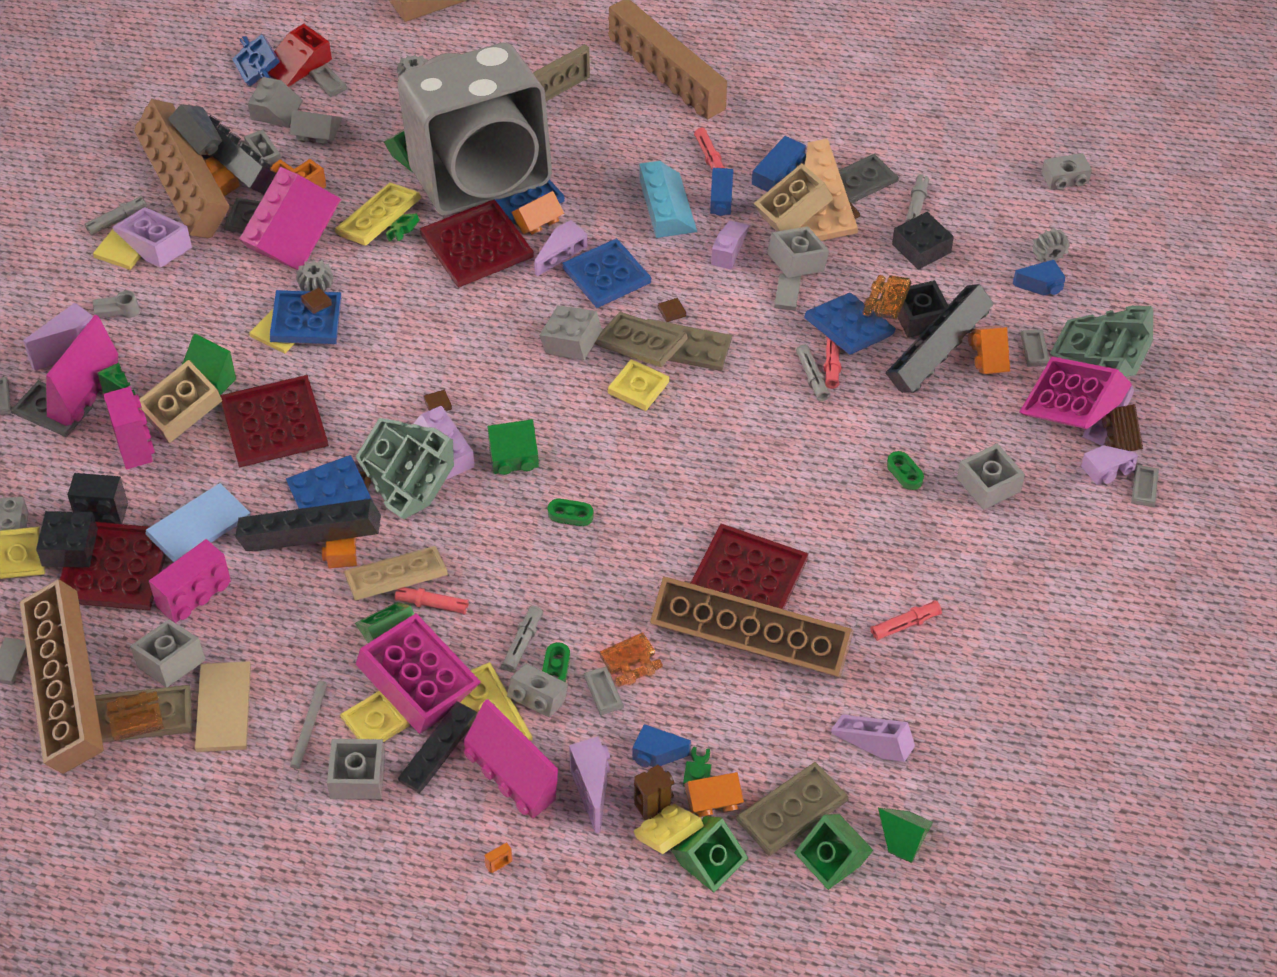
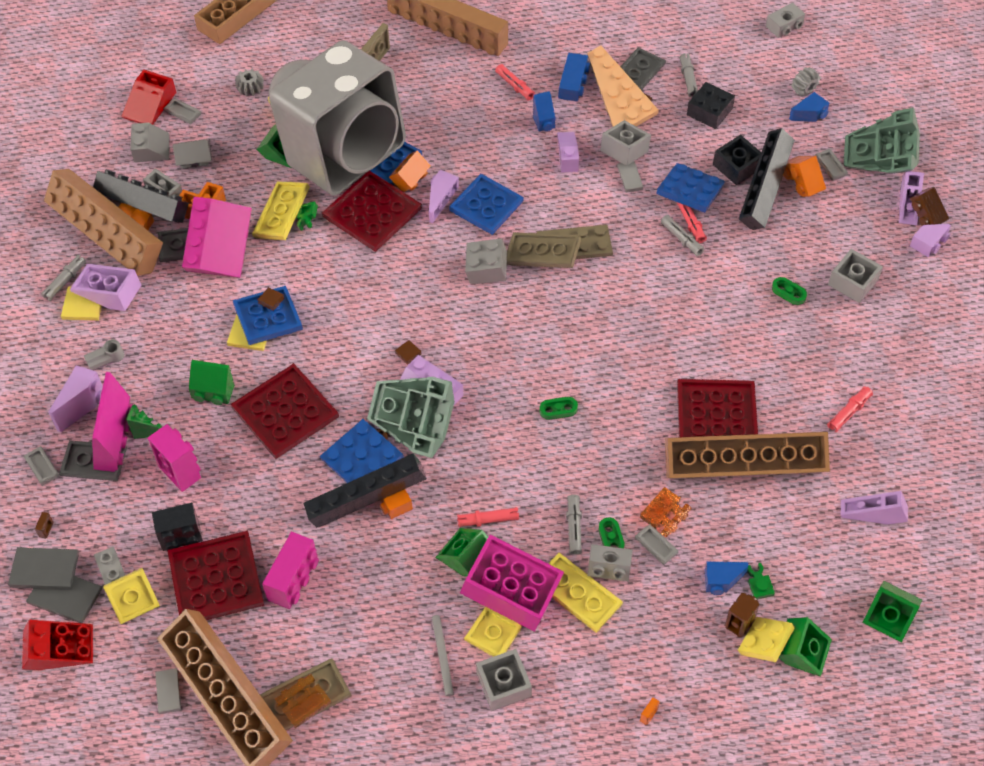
camera: 20 degrees left, 5 degrees up
(67, 539) = (170, 570): black brick -> none
(168, 653) = (302, 637): light grey brick -> none
(179, 401) = (204, 419): tan brick -> none
(196, 128) = (103, 184): dark grey slope -> none
(200, 519) = (268, 519): light blue tile -> none
(223, 706) = (366, 665): tan tile -> none
(255, 59) = (115, 110): blue plate -> none
(314, 276) = (257, 279): light grey gear -> none
(395, 573) = (449, 505): tan tile -> none
(438, 747) = (555, 637): black plate -> none
(511, 761) = (626, 629): dark pink slope -> none
(513, 447) = (490, 370): green slope -> none
(589, 772) = (689, 619): lavender slope -> none
(638, 385) = (557, 287): light yellow plate -> none
(666, 200) = (501, 131): medium azure slope -> none
(672, 309) = (550, 218): reddish brown tile -> none
(713, 794) = (784, 598): orange brick -> none
(792, 808) = (844, 588): dark tan plate -> none
(793, 199) = (603, 102): tan brick -> none
(891, 299) = (717, 158): clear orange plate -> none
(903, 832) = (936, 577): green slope -> none
(1075, 393) = (886, 191): dark pink slope -> none
(1145, 486) = (962, 246): light grey tile -> none

